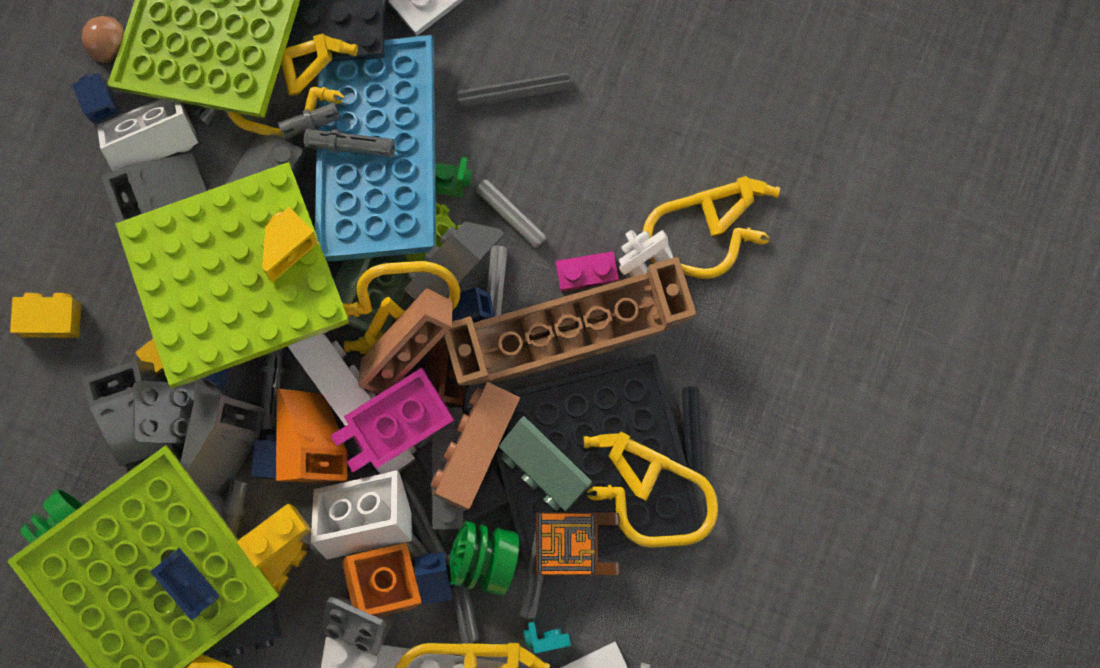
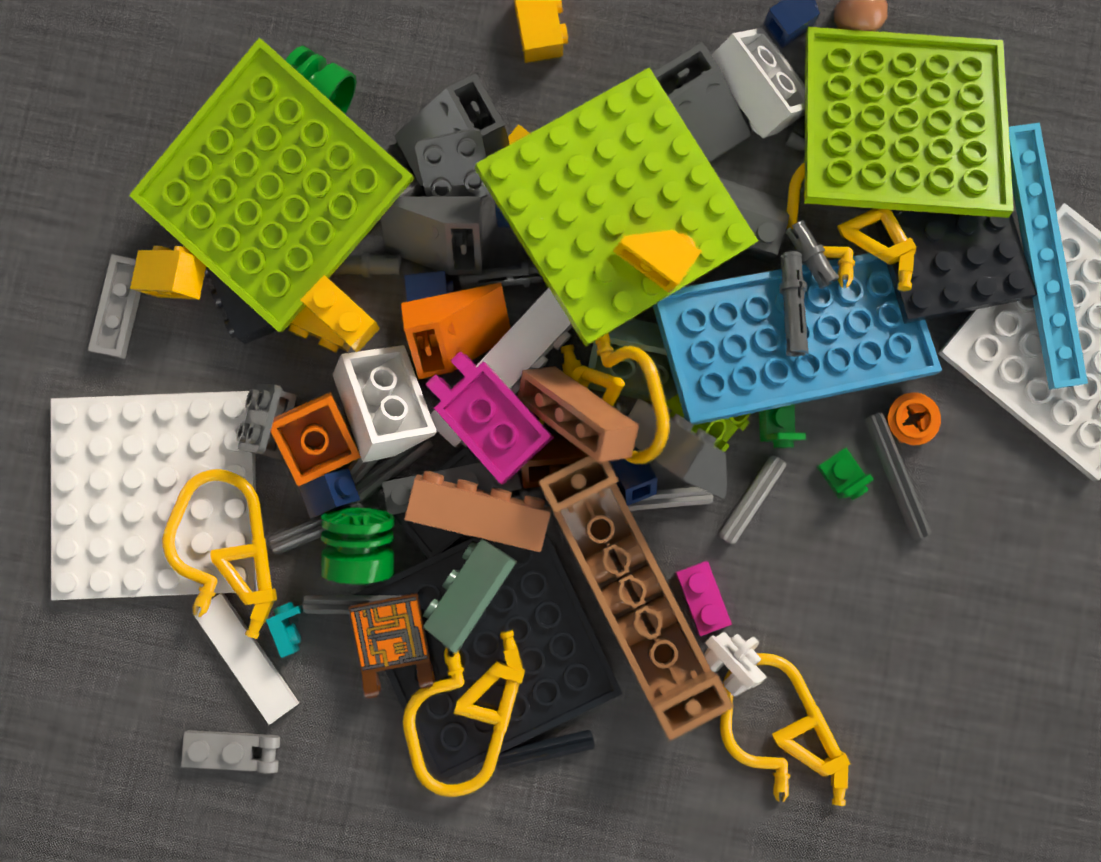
camera: 75 degrees right, 5 degrees up
(185, 583) = (267, 229): dark blue hinge -> none
(474, 56) = (927, 424): none -> orange gear
(504, 133) = (844, 475): none -> green bracket

